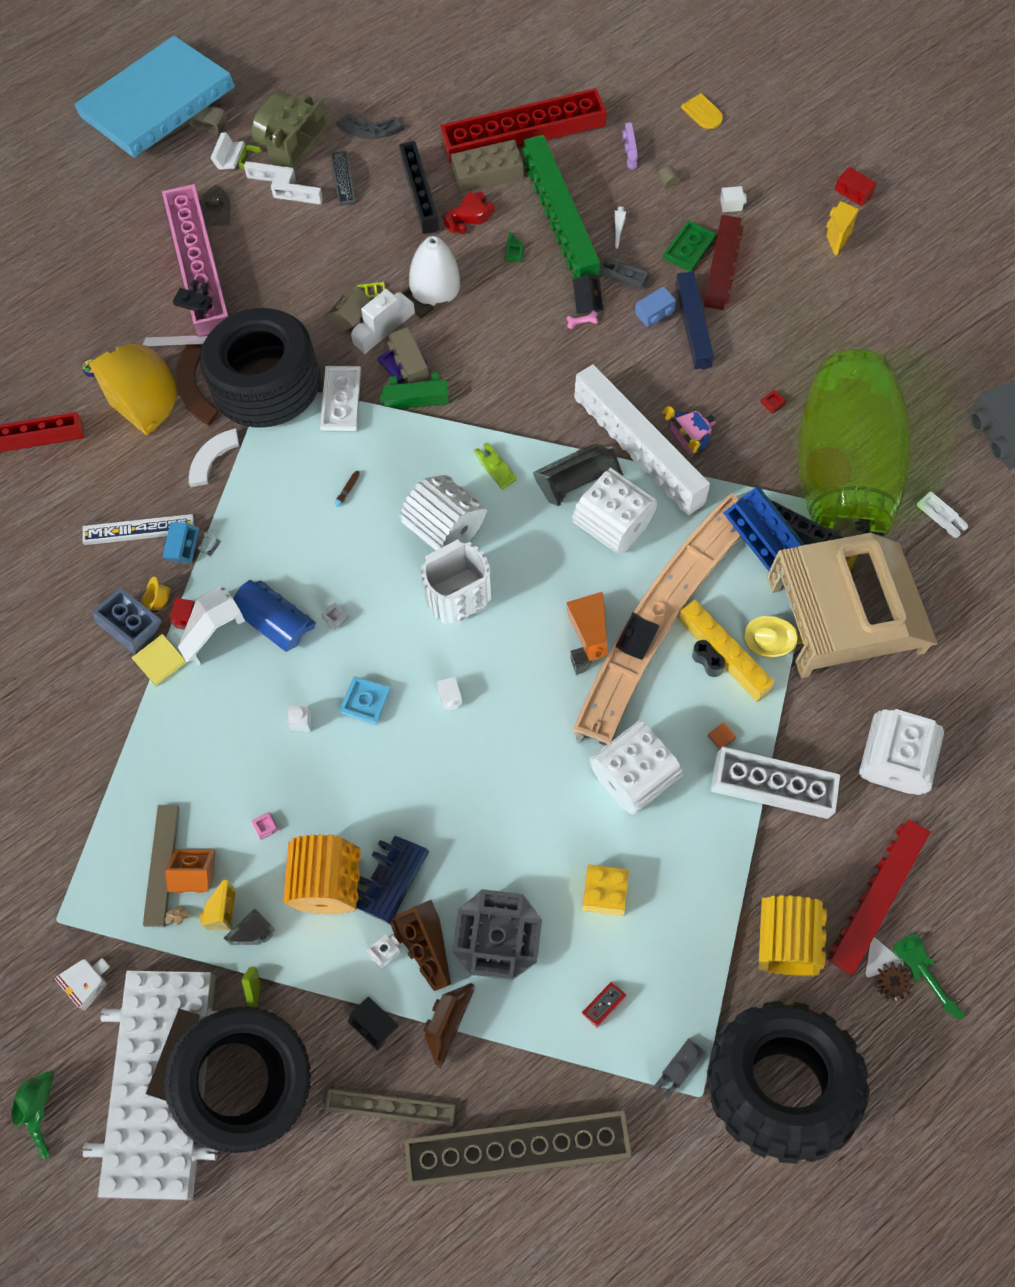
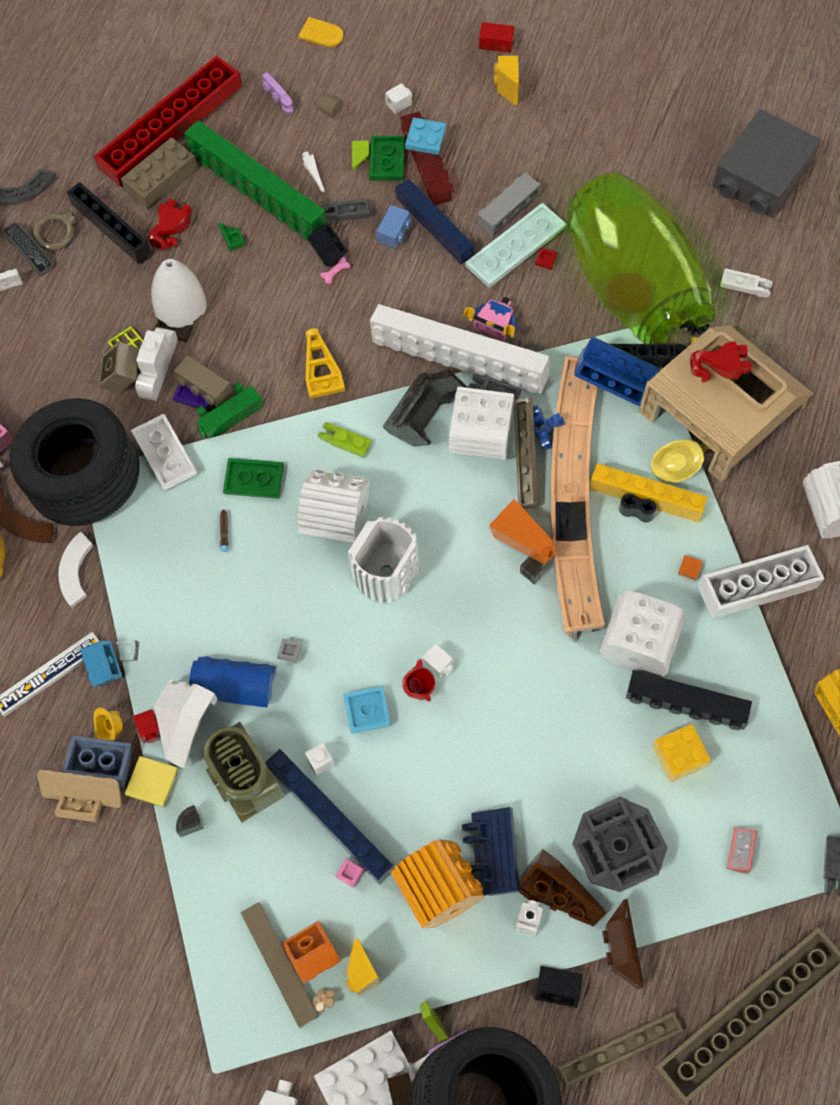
camera: 30 degrees left, 0 degrees up
(97, 639) = (79, 795): none -> tan bracket
(165, 708) = (188, 822): none -> clear smoke brick
(230, 704) = (250, 784): none -> olive brick
(250, 931) = (401, 971): clear smoke slope -> none
(276, 768) = (330, 816): none -> dark blue brick
(388, 168) = (66, 218): none -> dark tan piece
(399, 458) = (253, 478): none -> green tile
(421, 701) = (419, 682): none -> red hair
(509, 411) = (325, 384): none -> yellow plate
(639, 558) = (525, 453): none -> dark tan tile
(642, 848) = (688, 700): none -> black brick
(651, 487) = (494, 385): none -> dark grey hinge
(668, 230) = (360, 152): none -> lime tile
(668, 543) = (555, 421): none -> blue pin
(732, 241) = (425, 136): none -> medium azure plate
(753, 376) = (515, 245): none -> light aqua plate
(769, 337) = (508, 204): none -> light grey brick
(856, 566) = (722, 361): none -> red hips

